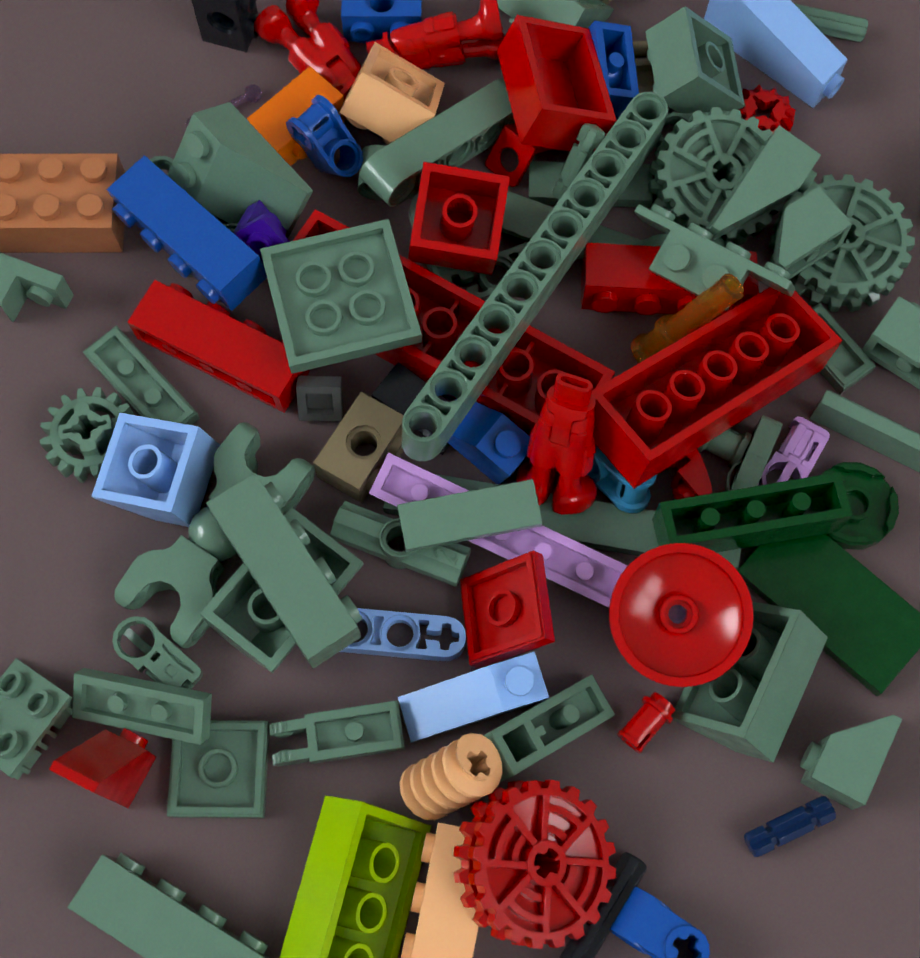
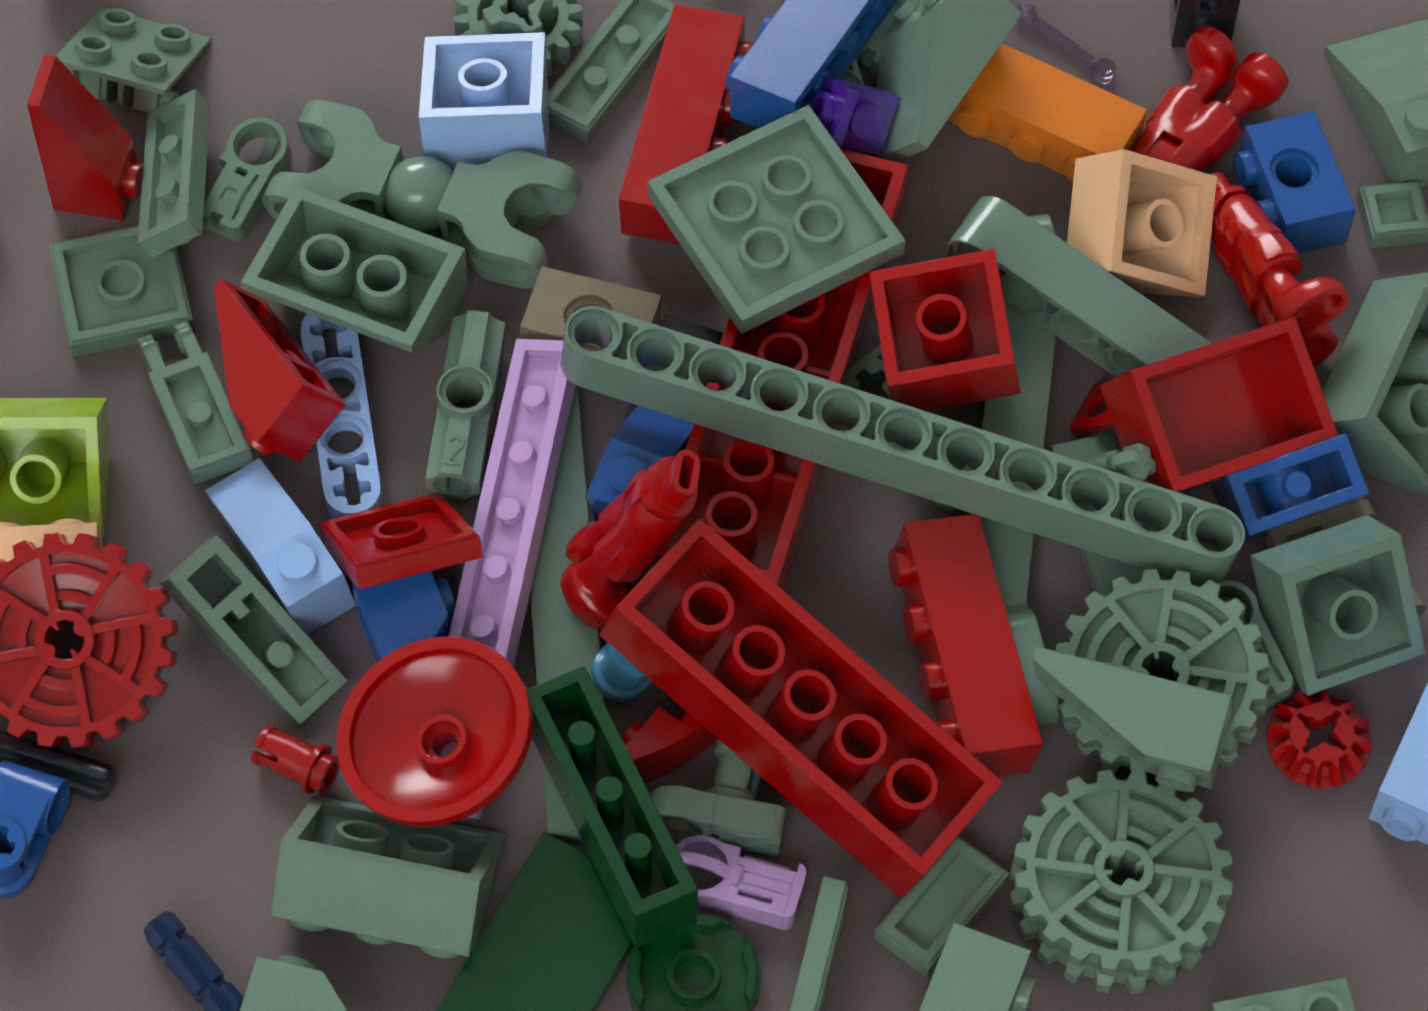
camera: 75 degrees right, 10 degrees down
(285, 570) = (366, 250): sand green brick -> none
(320, 134) = (1037, 146): blue piece -> none
(320, 398) = (648, 257): dark grey plate -> none
(355, 676) = (270, 377): none -> red slope
(452, 777) = (181, 522): light nougat piece -> none
(469, 515) = (512, 456): sand green tile -> none
(576, 625) = (404, 612): none -> blue slope
(690, 318) = (880, 644): clear orange pin -> none
(696, 262) = (981, 658): sand green bracket -> none
(808, 231) = (1079, 790): sand green slope -> none

